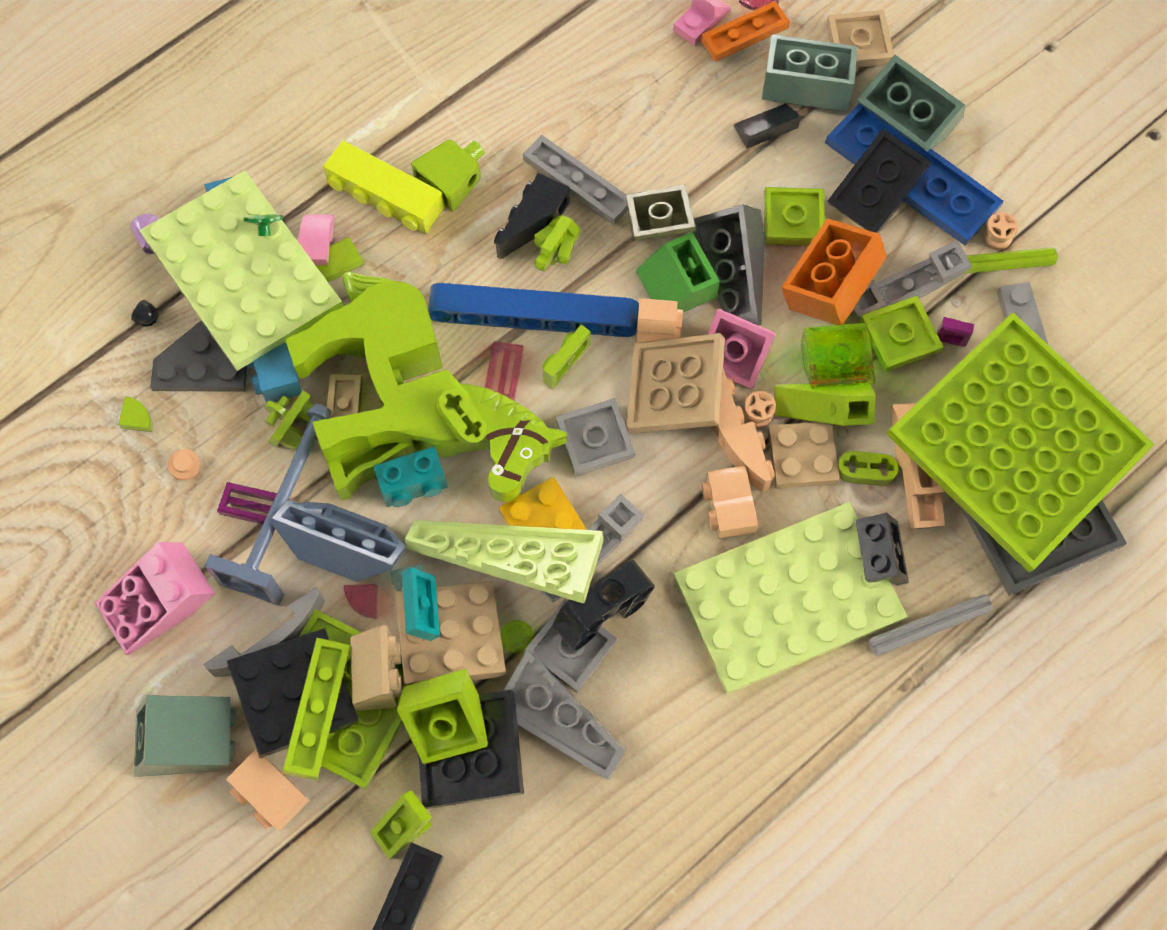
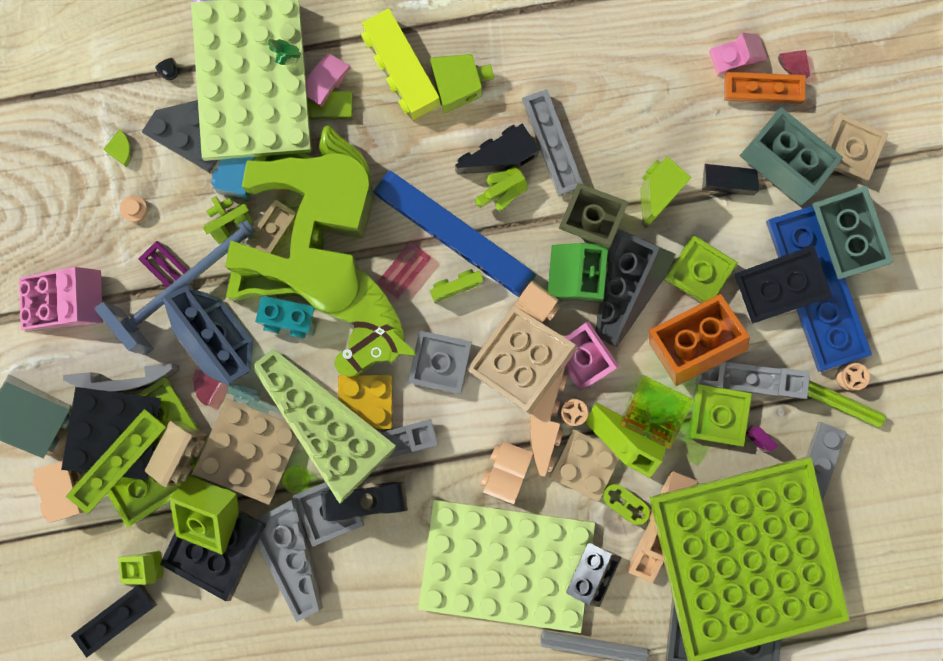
camera: 30 degrees right, 15 degrees up
(420, 604) = (233, 424): teal plate -> none
(467, 412) = (347, 300): lime beam -> none
(707, 159) = (661, 185): none -> lime slope

